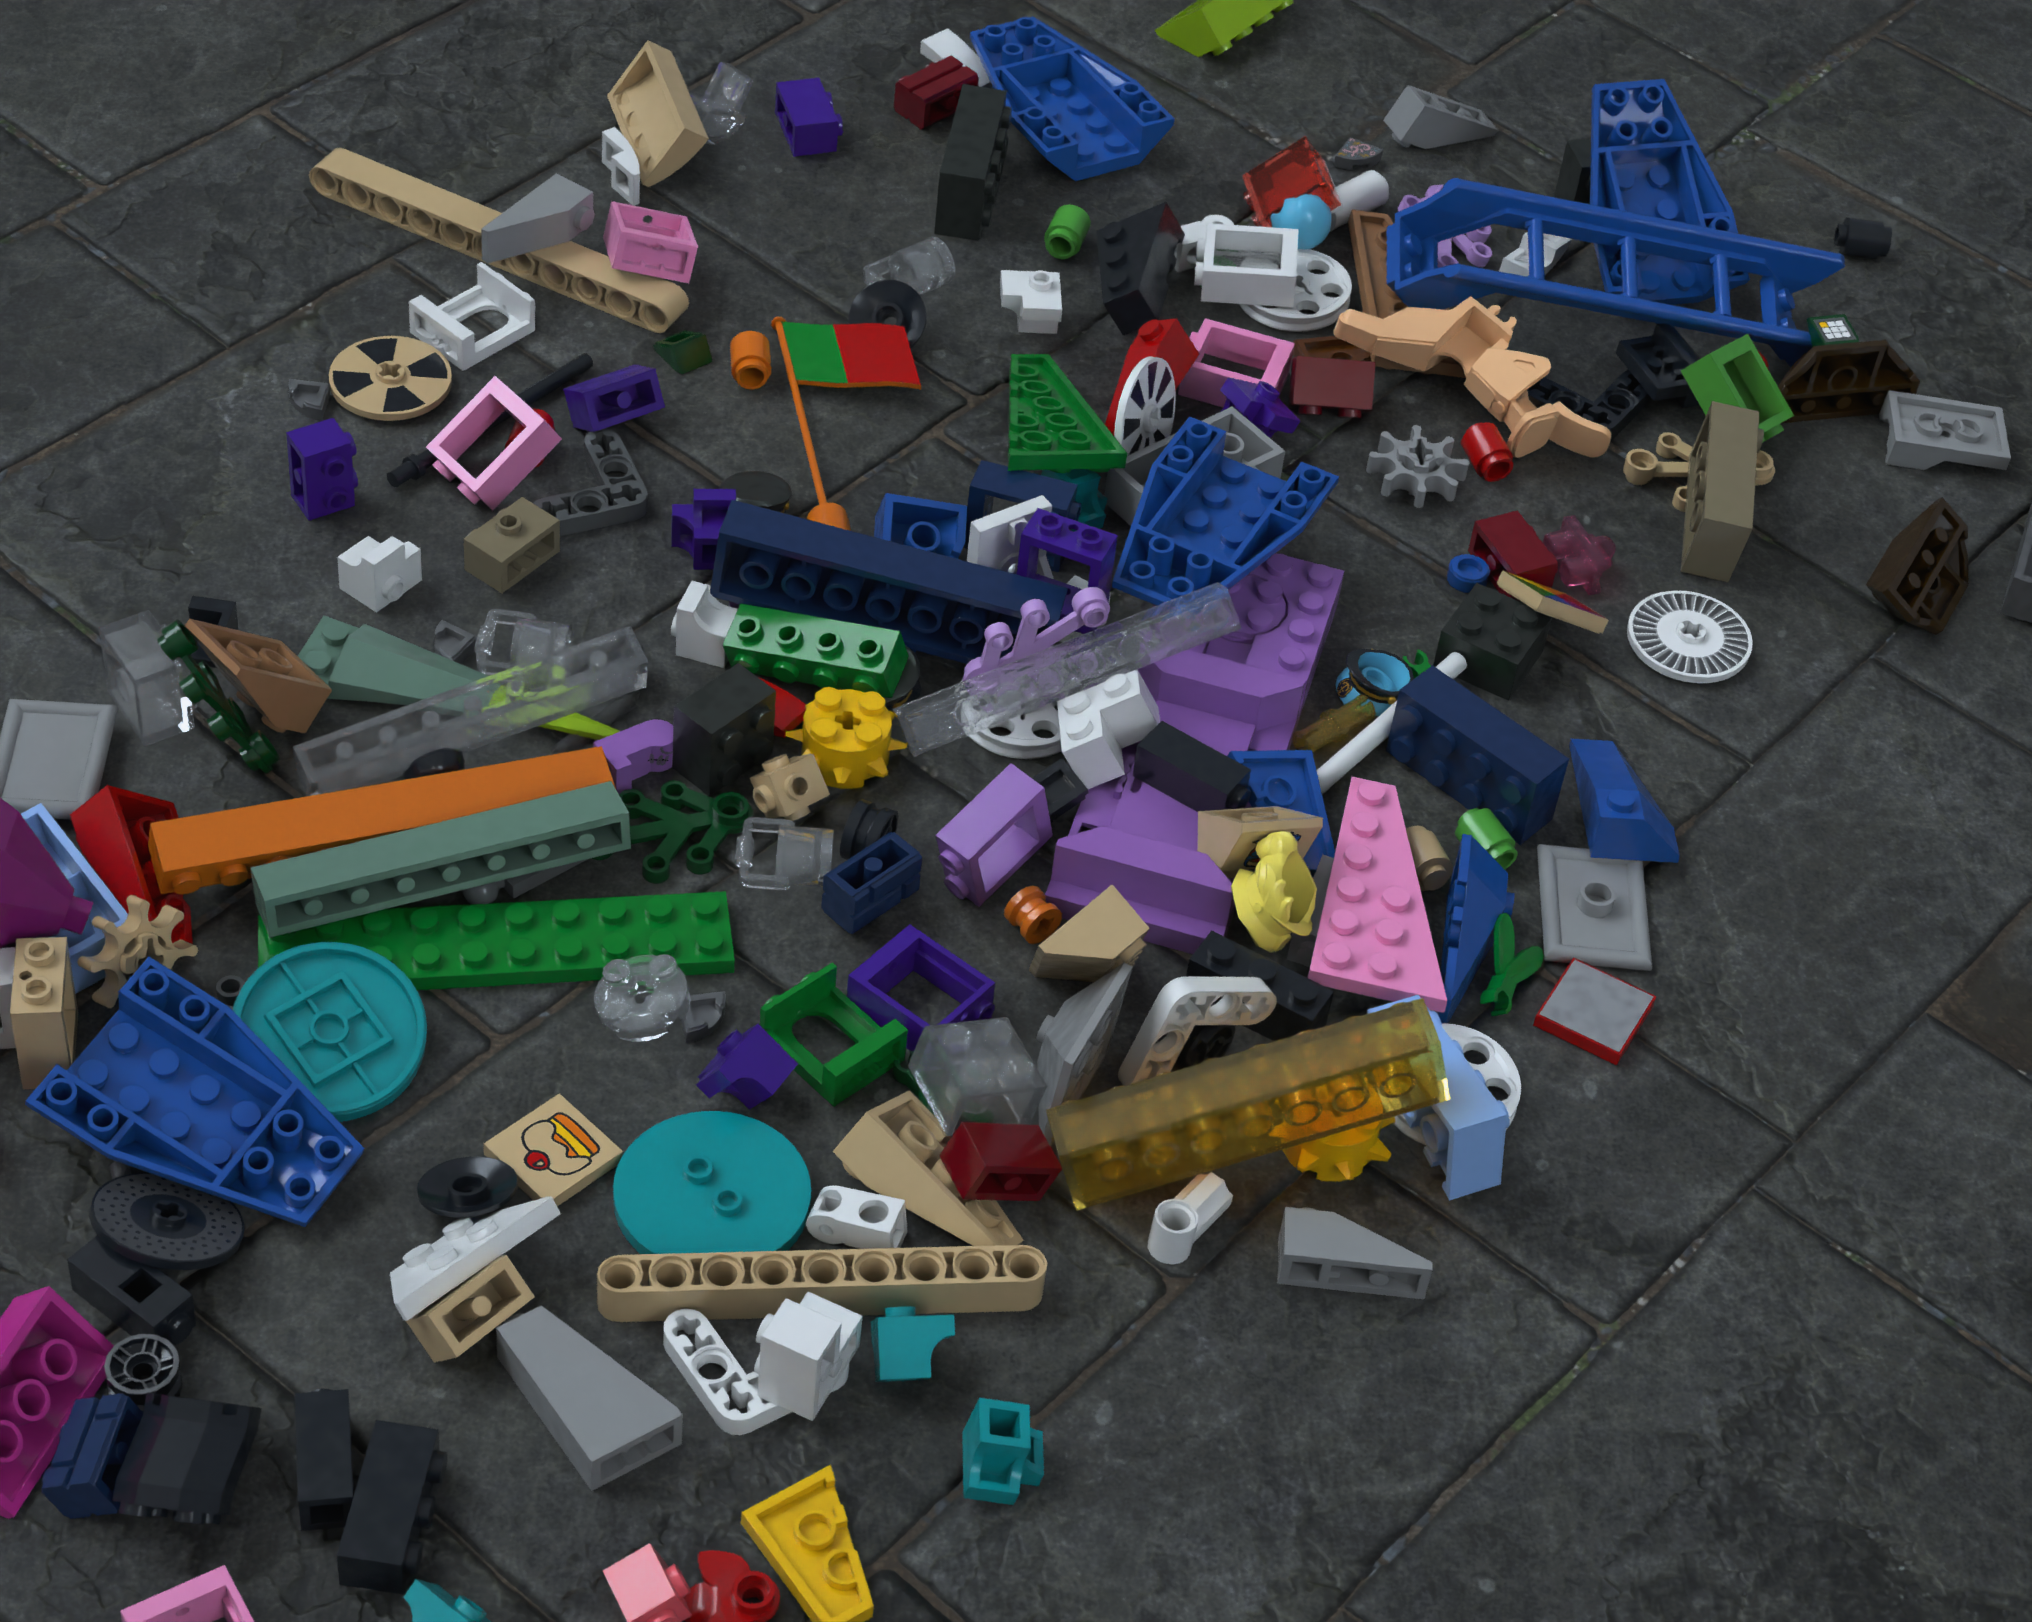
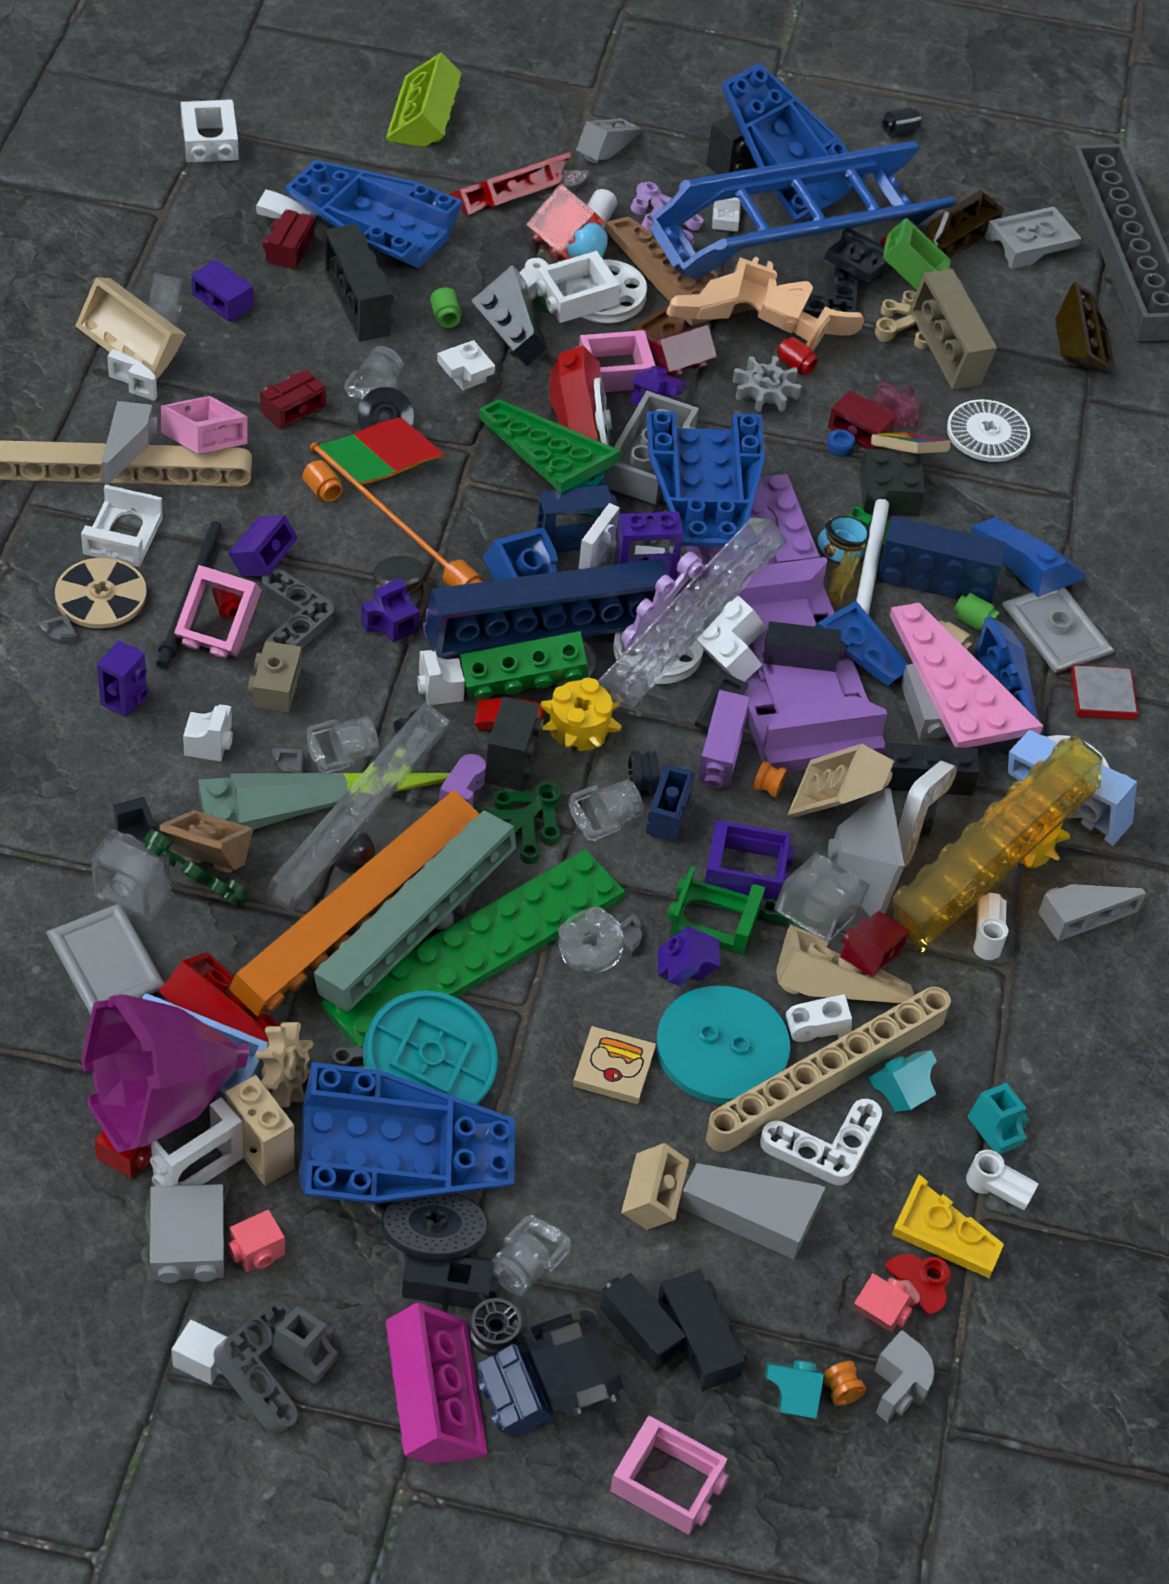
camera: 30 degrees left, 5 degrees up
(236, 1315) = (525, 1257): none -> clear piece
(463, 1251) = (626, 1154): white wing -> none
(467, 1186) = (589, 1112): black dish -> none
(684, 351) = (271, 491): dark green slope -> none
(788, 786) = (574, 762): tan brick -> none
(791, 260) = (292, 399): none -> dark red brick
(805, 1352) = (867, 1114): white brick -> none
(939, 1530) = (1001, 1179): none -> white piece
(1232, 834) = (872, 670): tan slope -> none
(1268, 129) = (512, 184): none -> wedge
(1277, 895) = (910, 702): light yellow piece -> none
(1508, 967) = (1046, 684): green piece -> none
(1831, 330) = (945, 197): slope -> none

